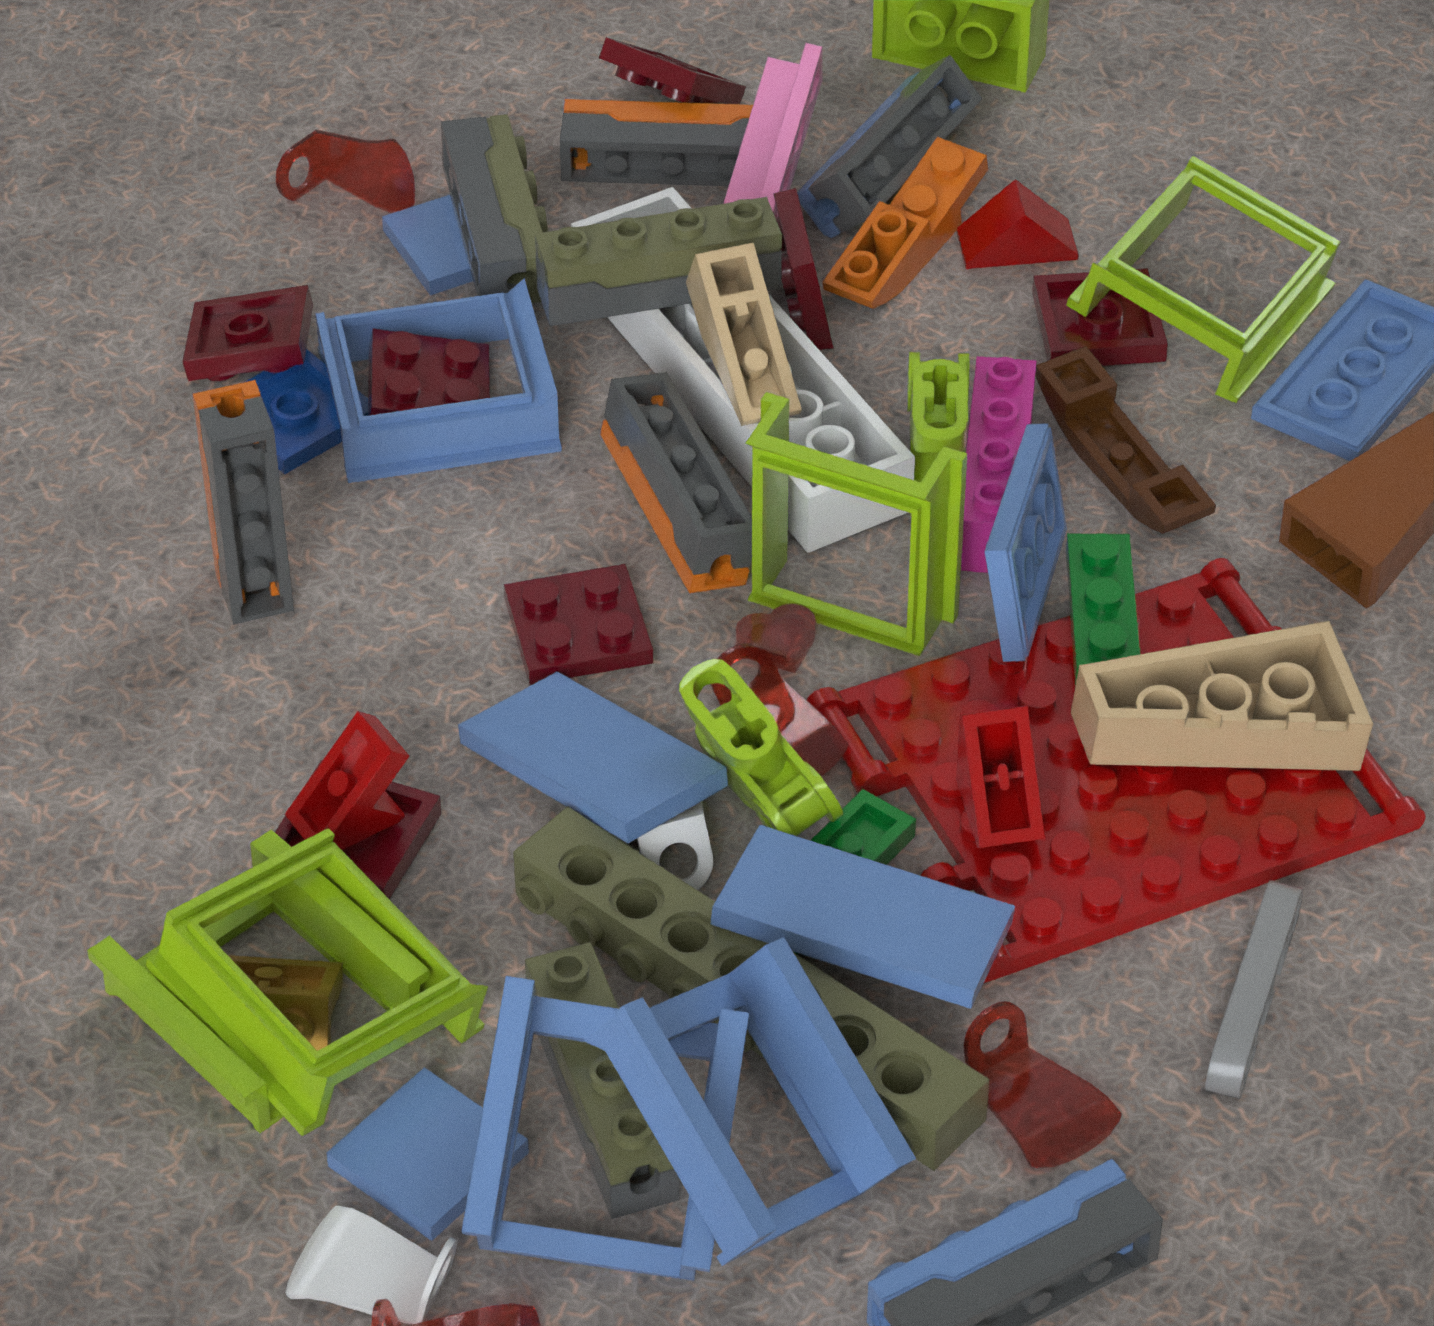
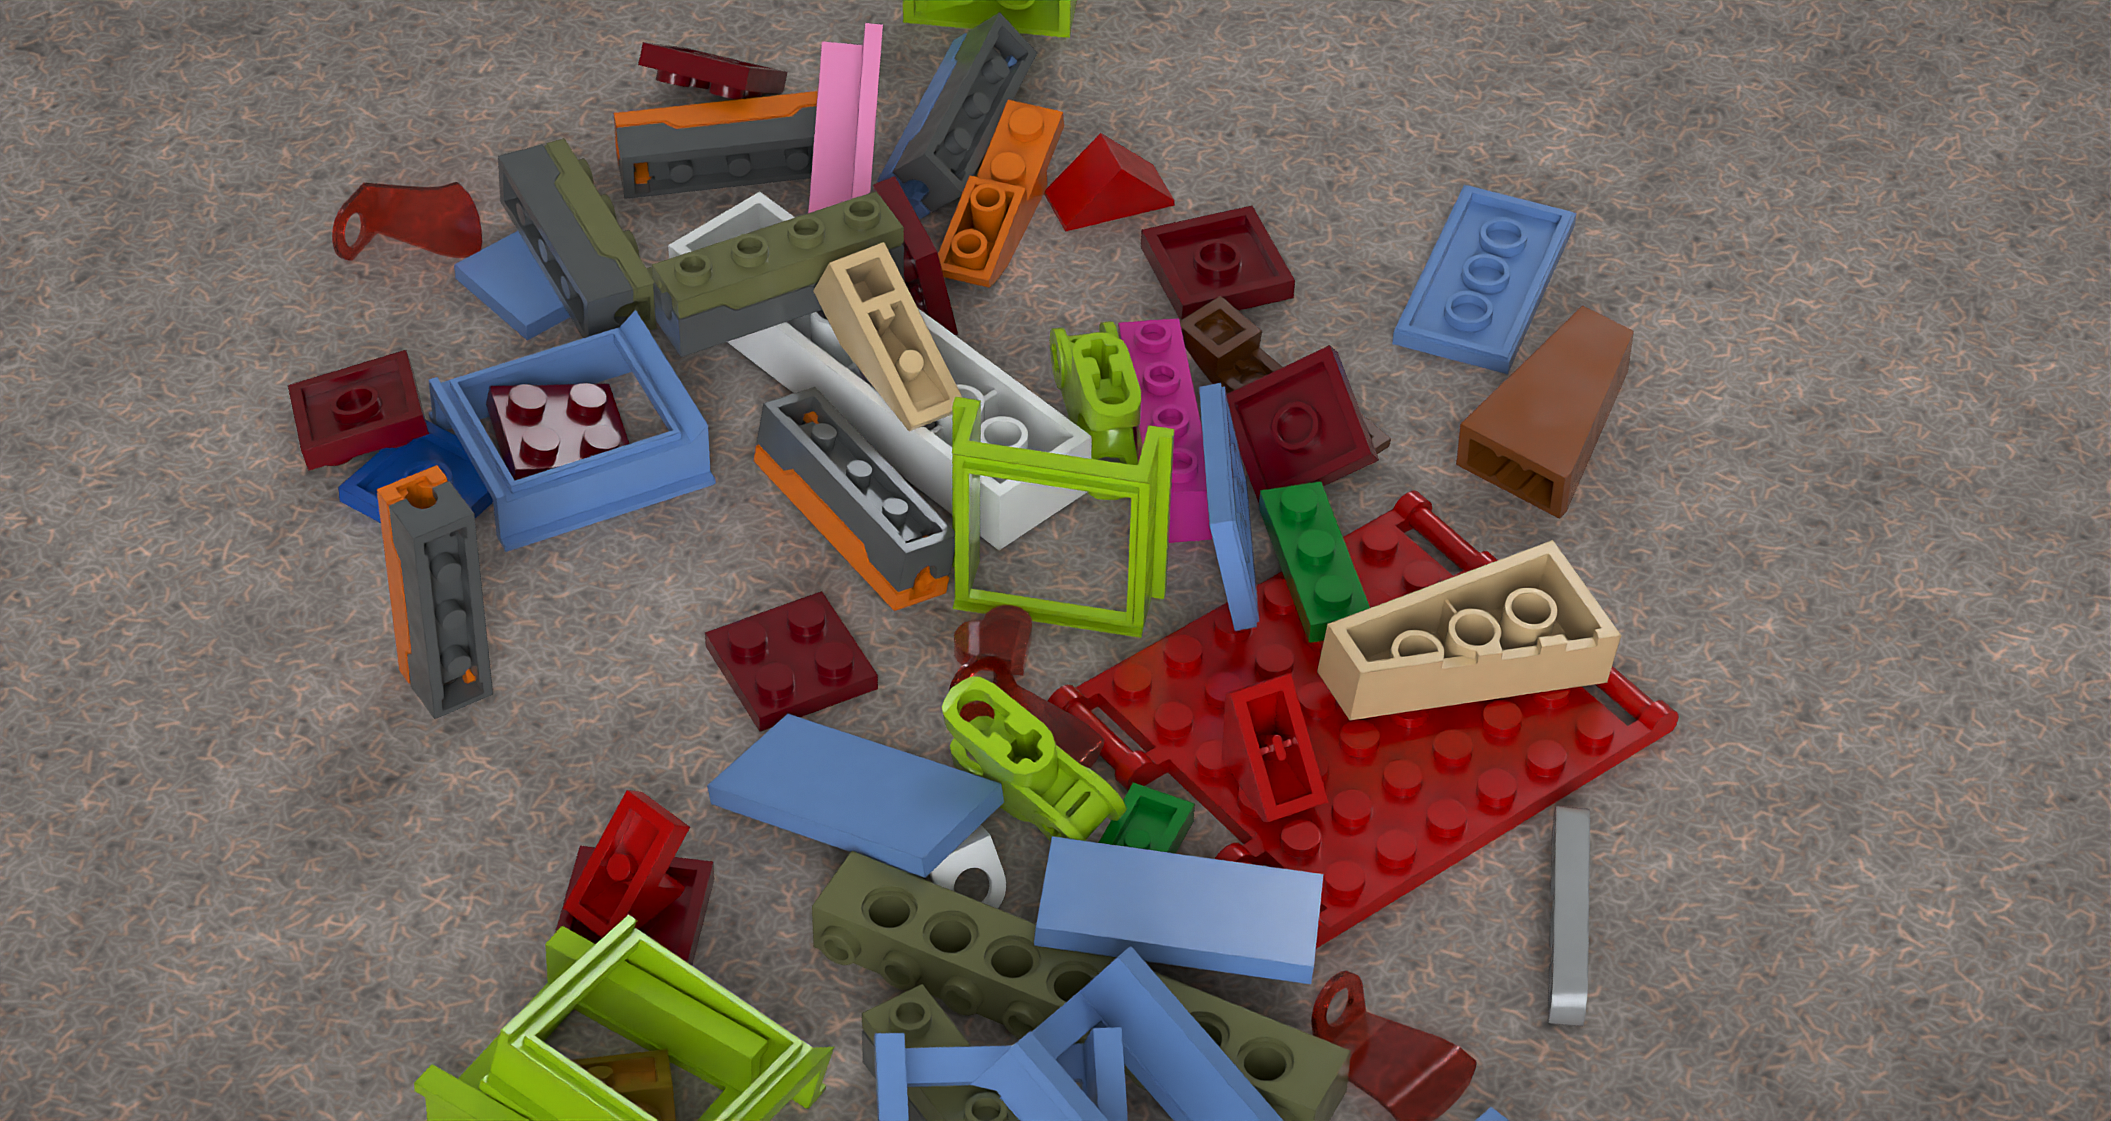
camera: 15 degrees left, 0 degrees up
(1125, 476) = (1301, 424): none -> dark red plate
(1247, 351) = (1374, 274): lime piece -> none

